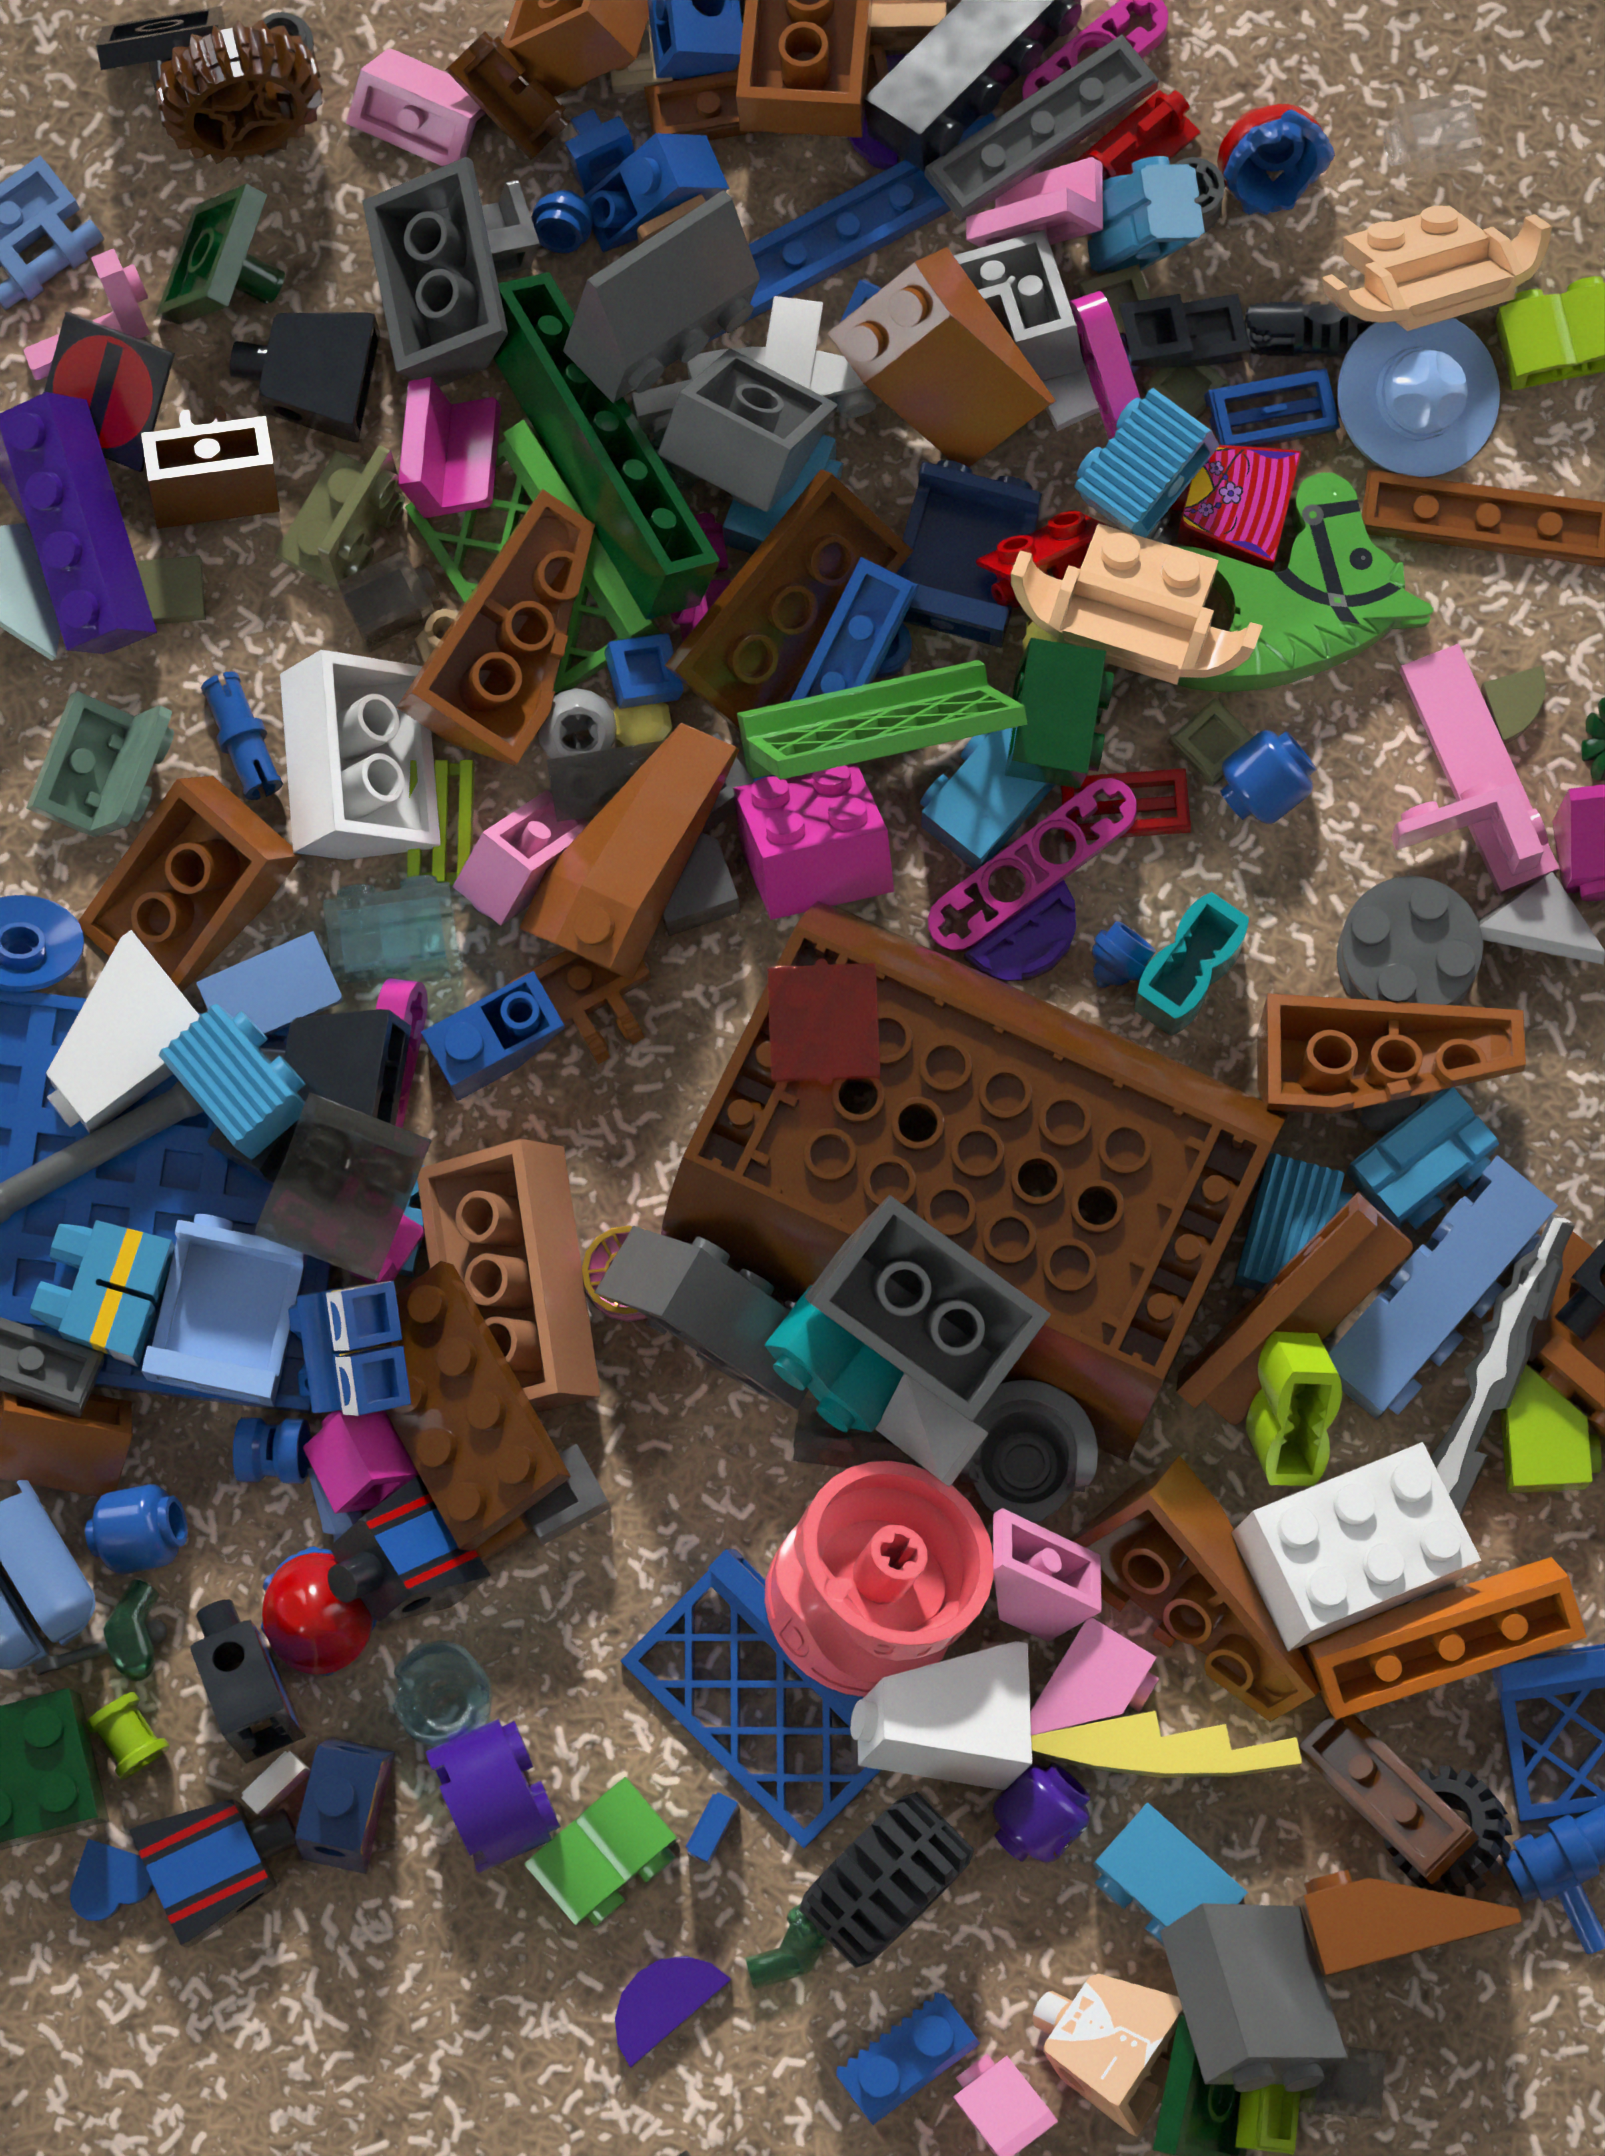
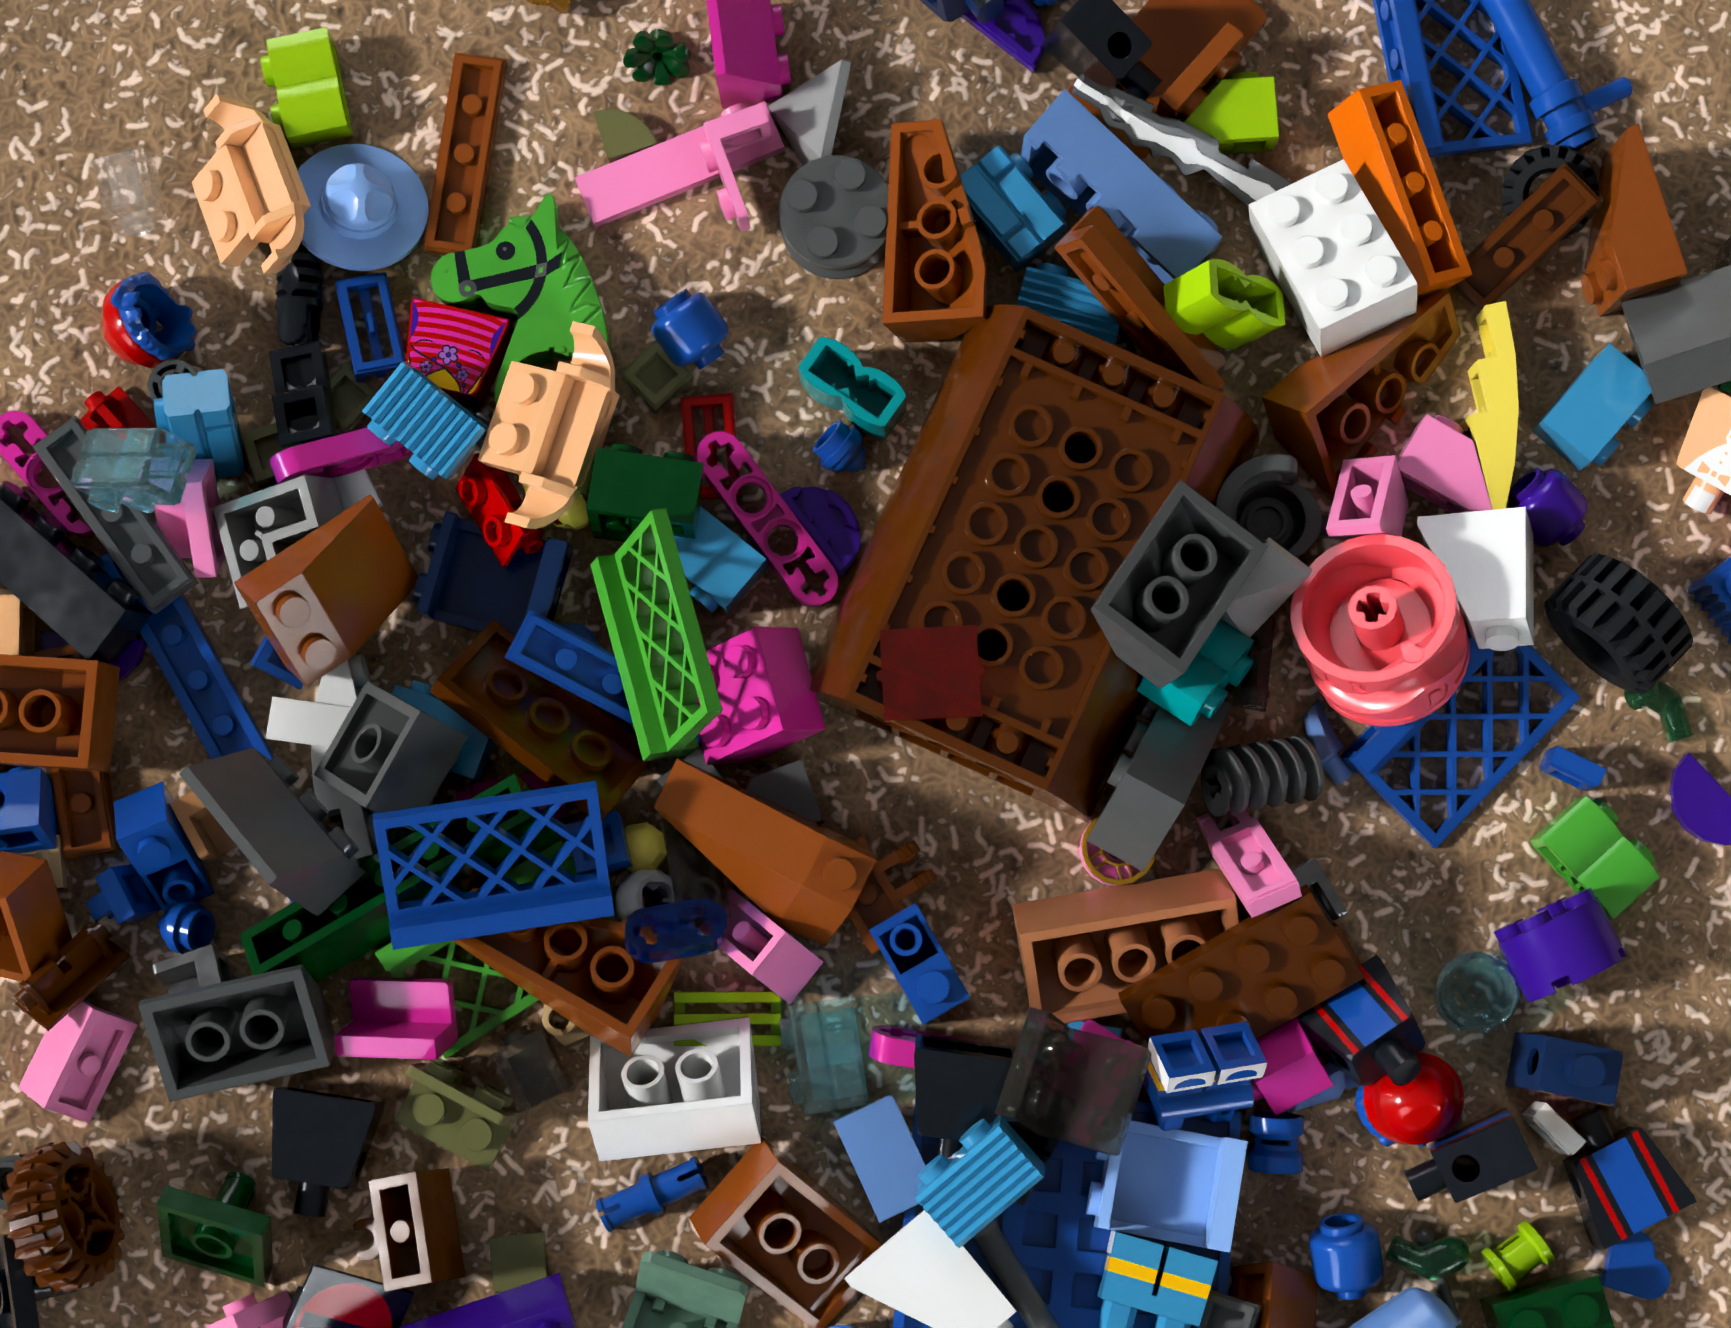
camera: 90 degrees left, 5 degrees up
(551, 745) = (674, 928): none -> clear blue beam
(568, 557) = (491, 908): none -> blue fence
(602, 1415) = (1250, 862): none -> bright pink hinge
(712, 1440) = (1261, 775): none -> dark grey piece
(749, 1529) = (1324, 739): none -> medium blue bar
(1083, 135) = (133, 468): none -> clear light blue brick

